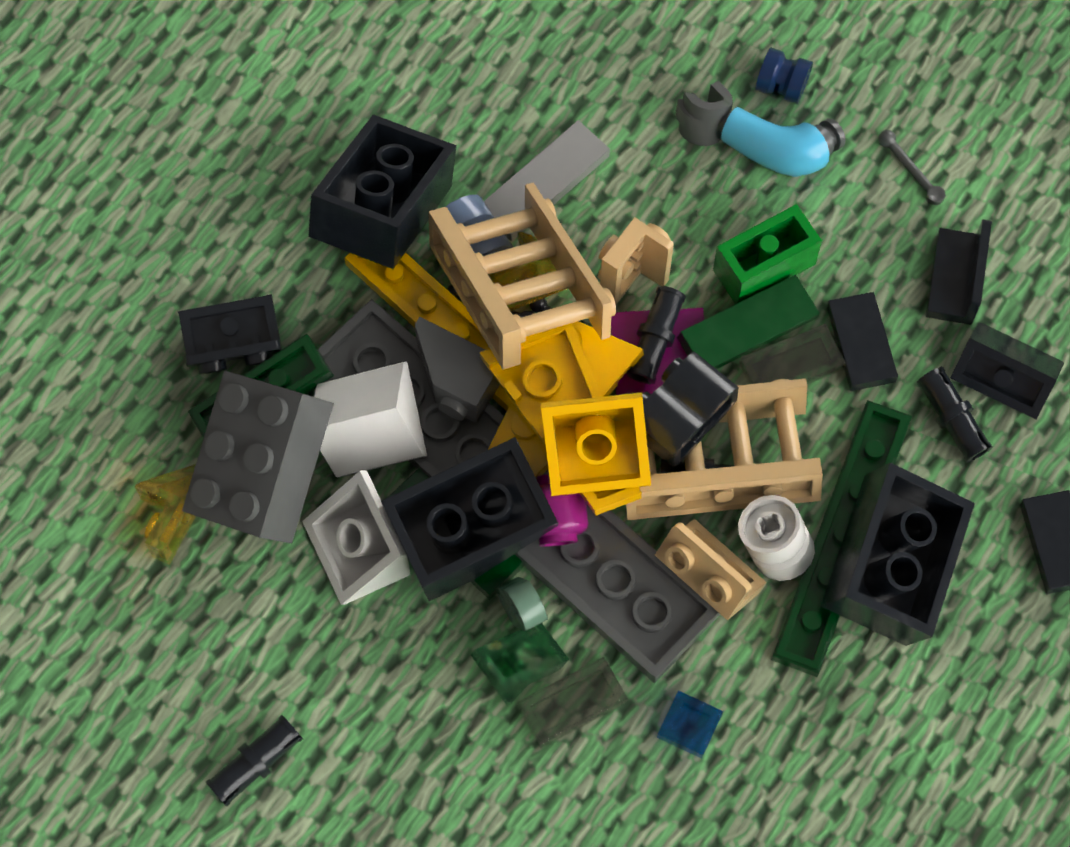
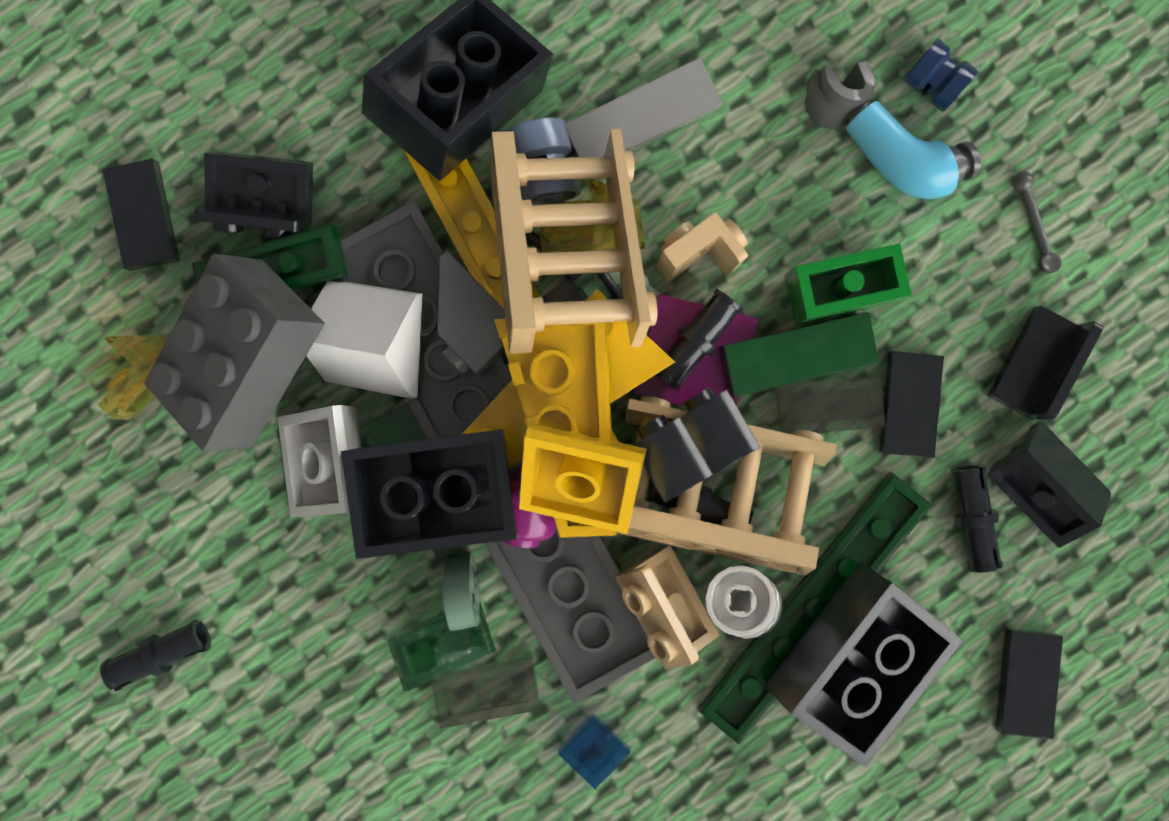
camera: 20 degrees right, 20 degrees up
(129, 386) = (141, 214): none -> black tile

